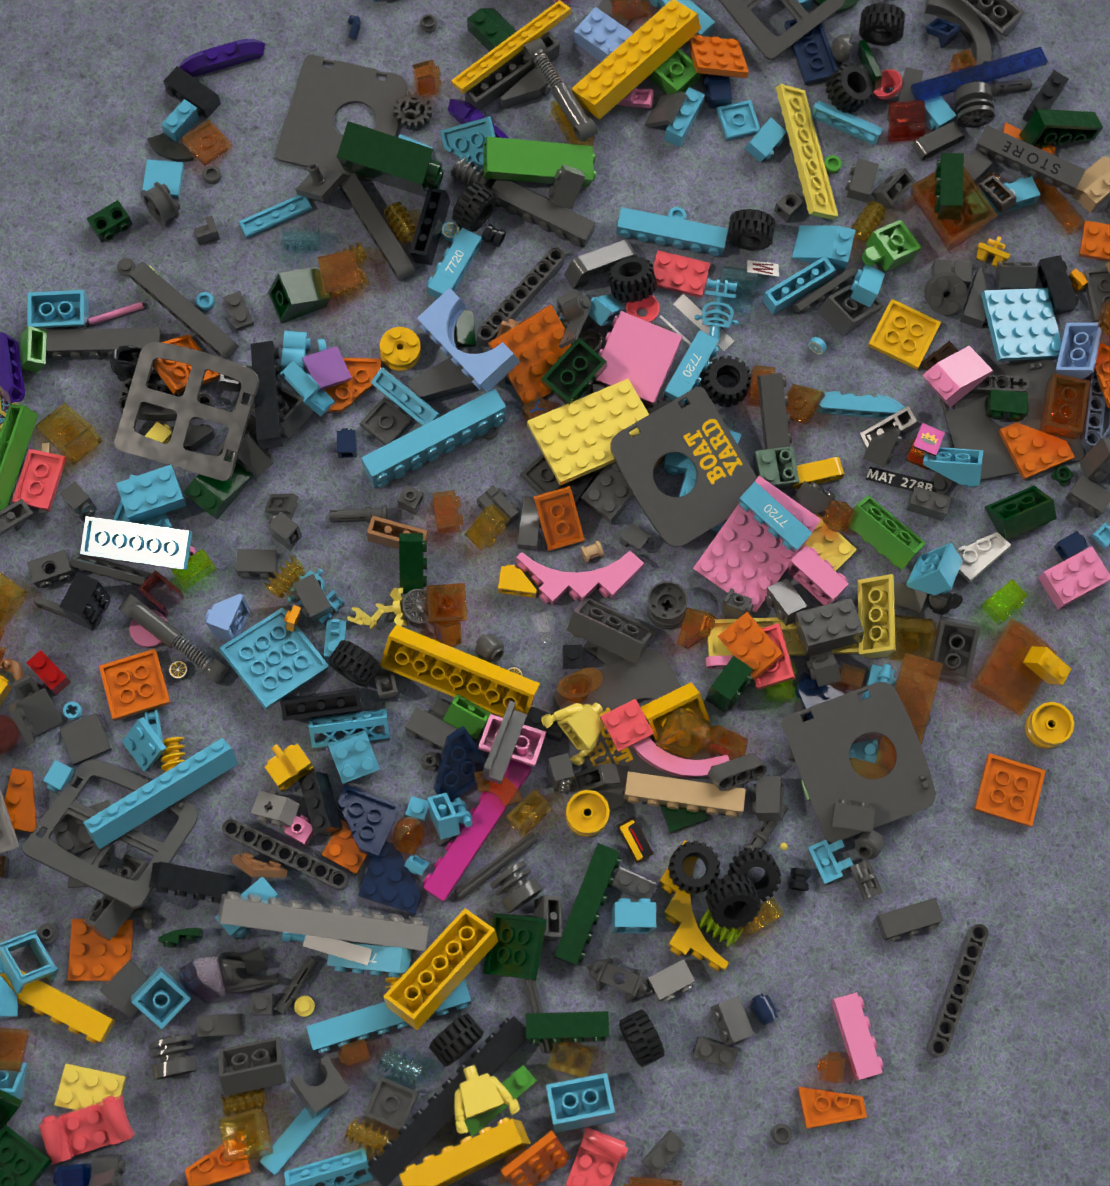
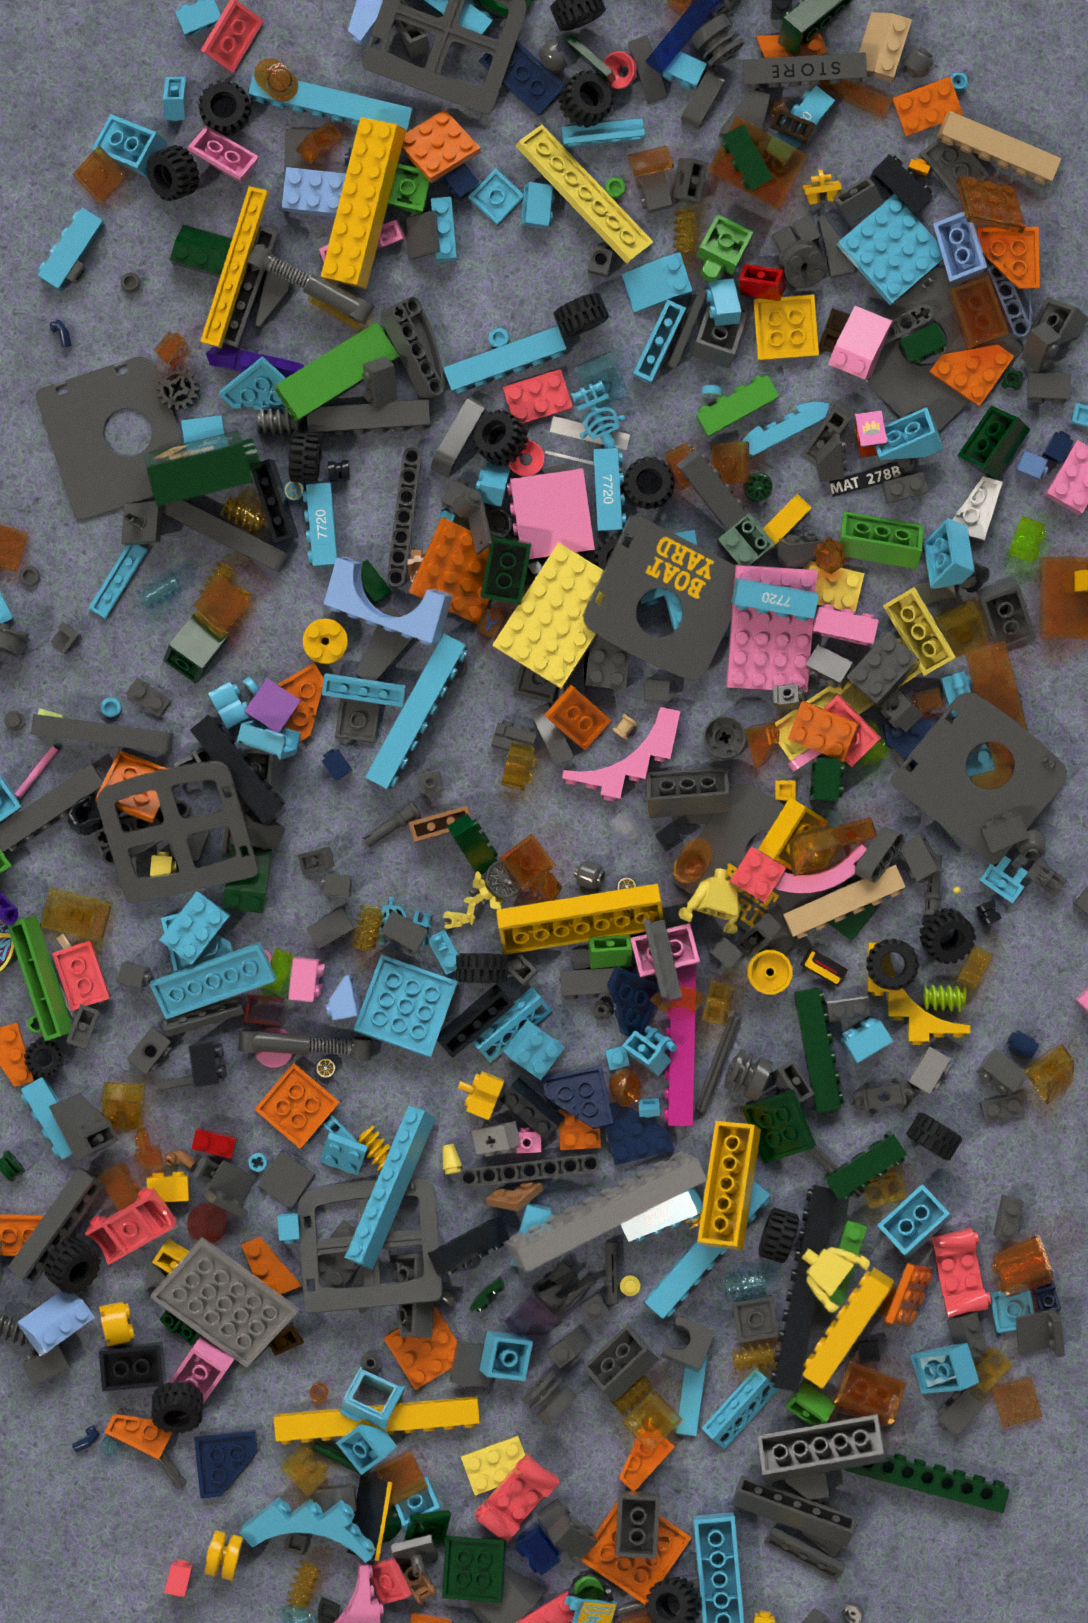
camera: 30 degrees left, 15 degrees up
(208, 583) = (305, 979): none -> bright pink brick
(226, 808) = (451, 1160): none -> light yellow cone
(292, 618) = (398, 960): light orange plate -> none
(339, 948) = (646, 1219): white sticker -> none
(354, 1053) = (699, 1298): clear orange brick -> none
(446, 512) = (470, 772): clear orange brick -> none
(514, 582) = (573, 800): yellow slope -> none
(610, 179) = (415, 345): none -> dark grey beam
(690, 675) = (785, 789): none -> yellow tile
(733, 901) = (944, 975): black tyre -> none
(762, 268) = (614, 344): white sticker -> none
(775, 1048) = (1052, 1072): none -> clear yellow slope
(811, 436) = (759, 487): none -> dark green wheel
(831, 367) = (737, 406): none -> bright green brick
(871, 157) = (650, 161): none -> clear orange tile
(906, 120) = (661, 99): clear red slope -> none
(906, 288) = (762, 282): none -> red brick
(1041, 547) = (1032, 466): none -> medium blue brick

